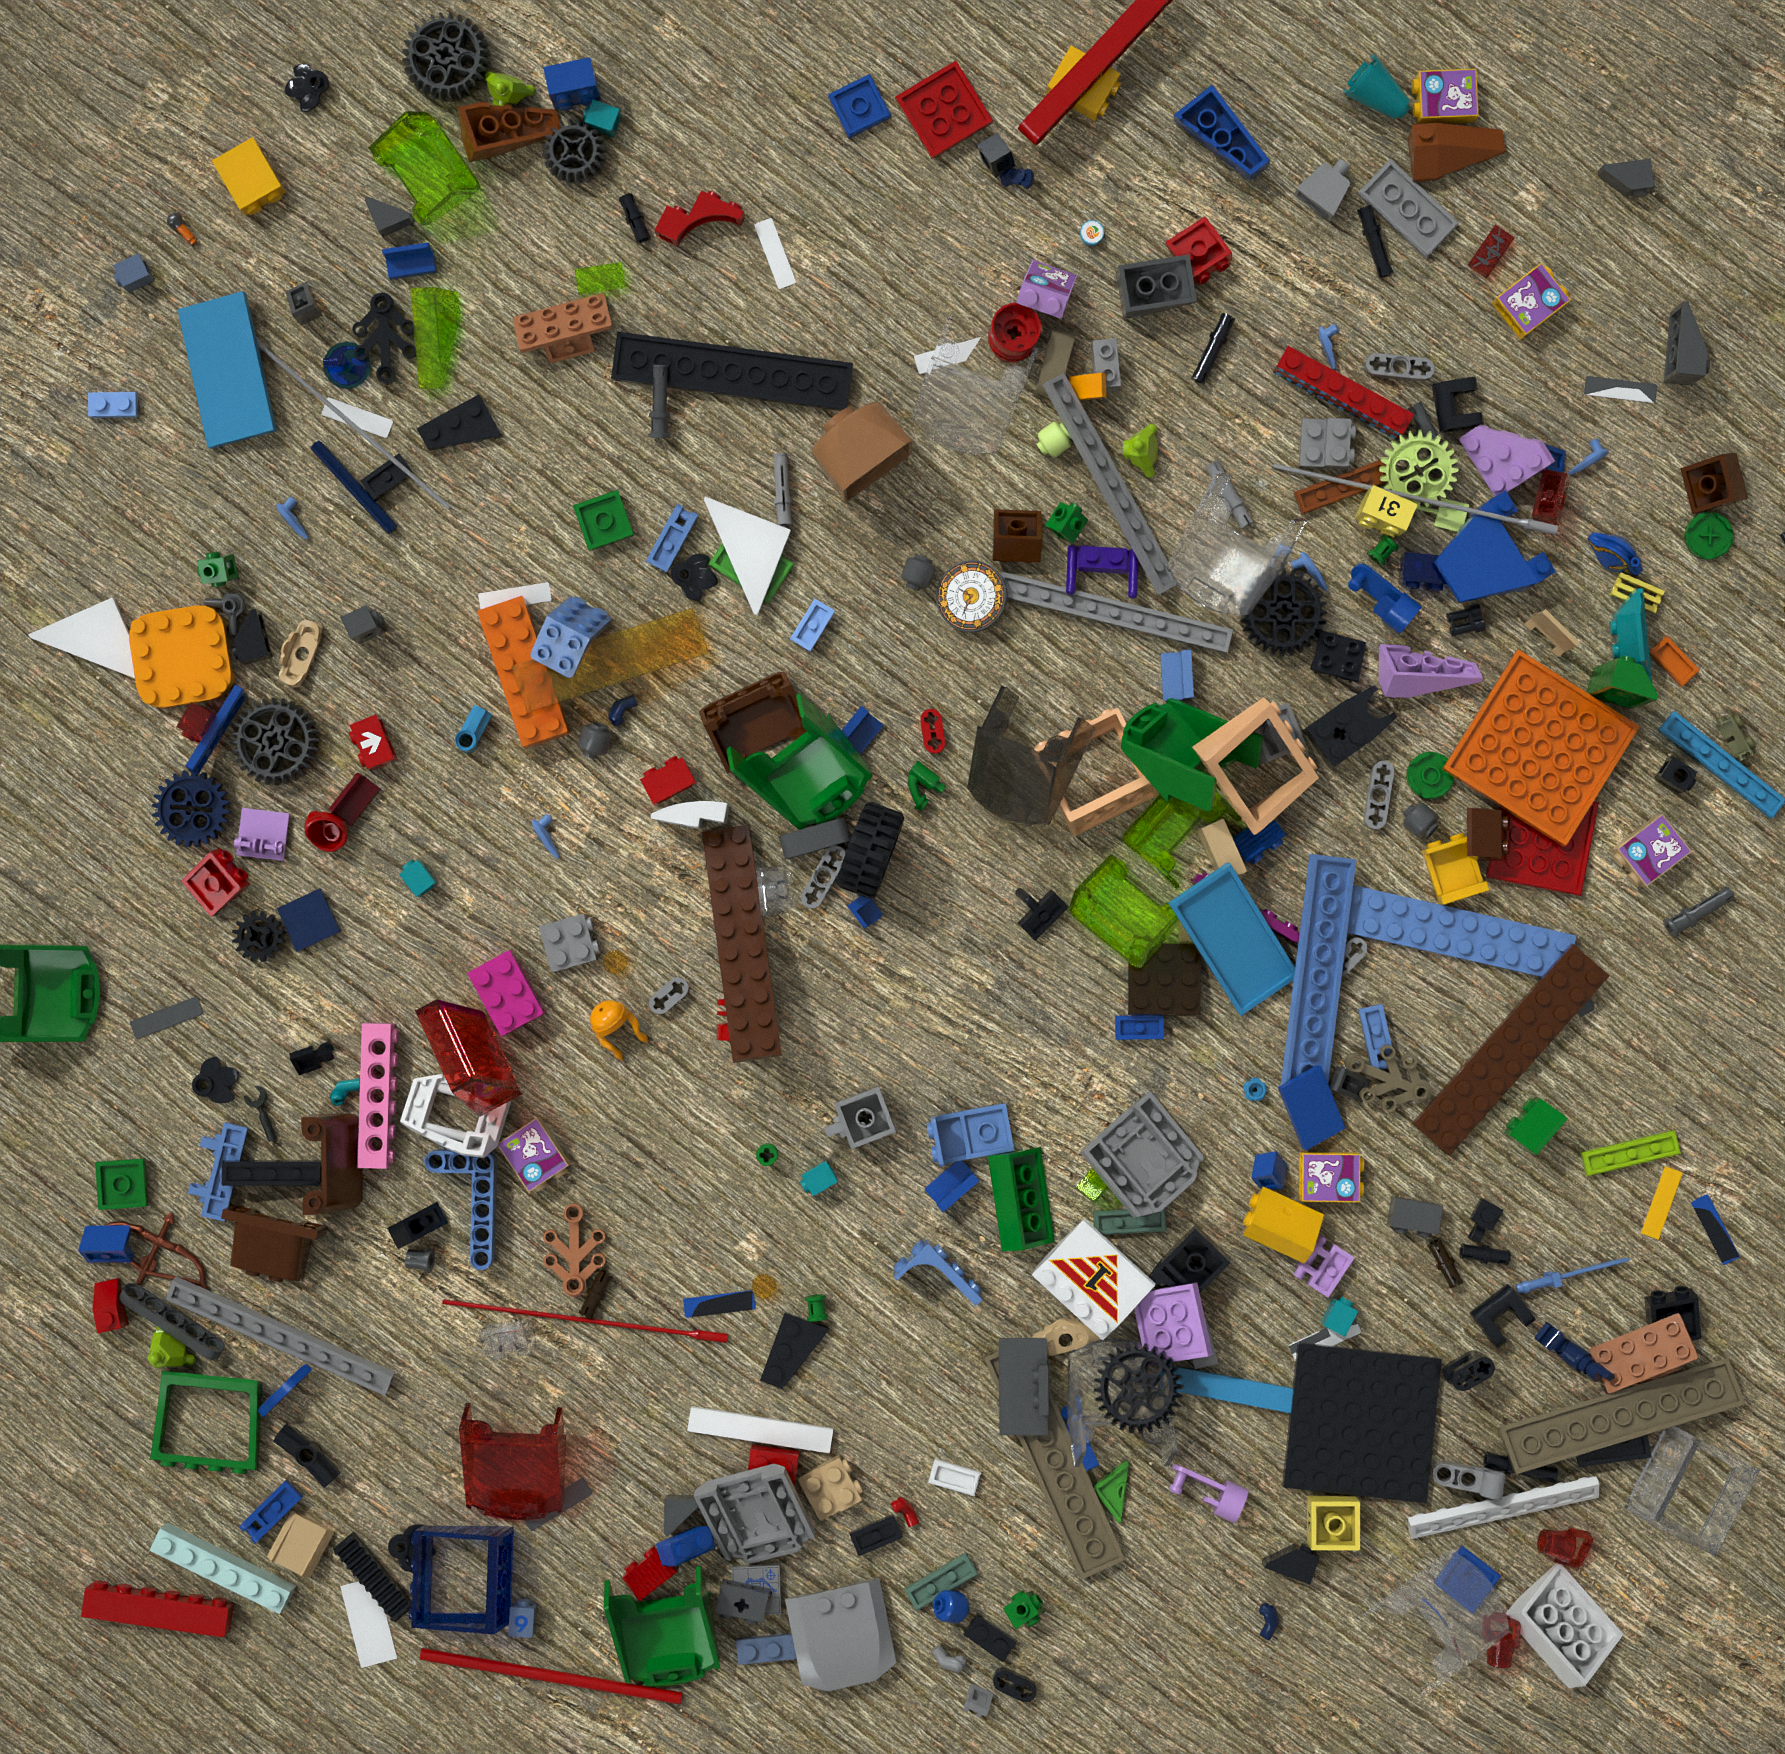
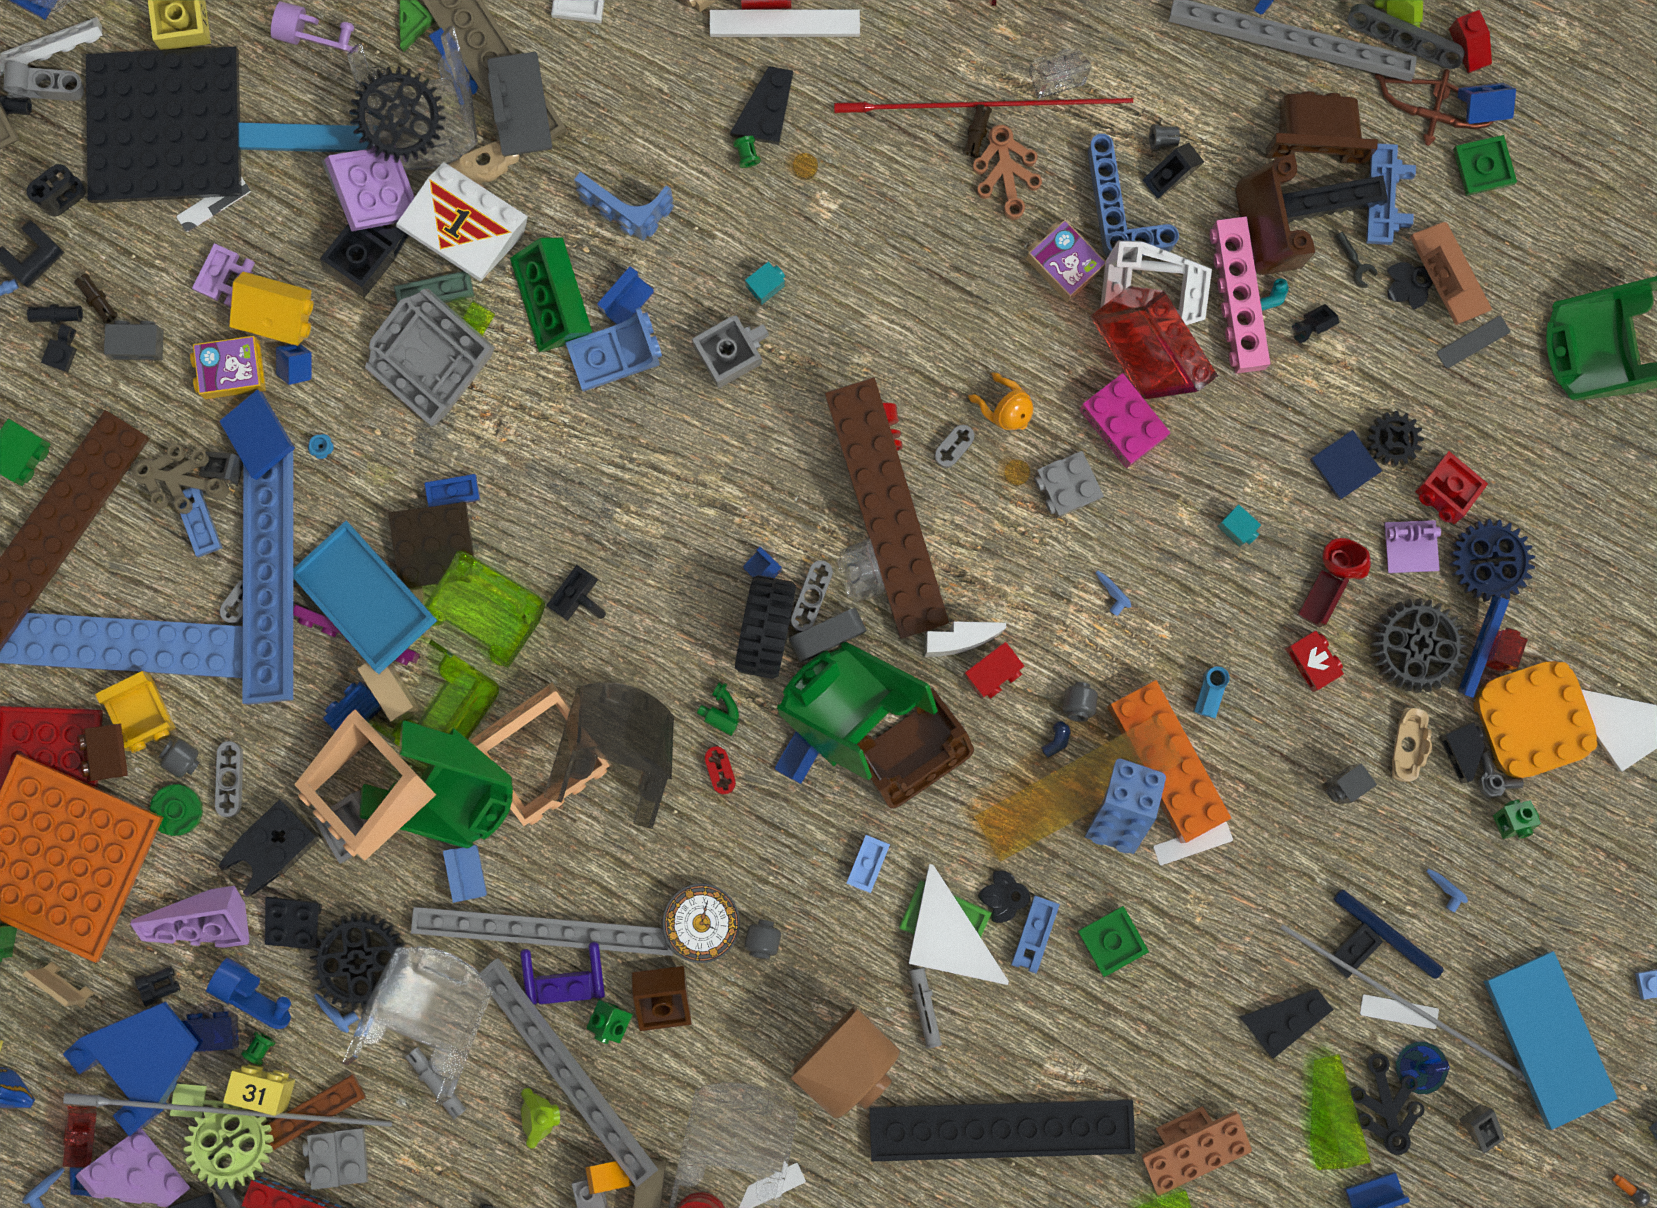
camera: 160 degrees right, 5 degrees down
(175, 1084) = (1450, 273): none -> nougat bracket
(659, 413) = (1073, 1069): dark grey pin -> none
(719, 1303) = (848, 142): black sticker -> none
(772, 1149) = (817, 302): green bush -> none
(1054, 439) = (636, 1112): yellowish green head -> none
(1339, 1315) = (200, 227): teal brick -> none

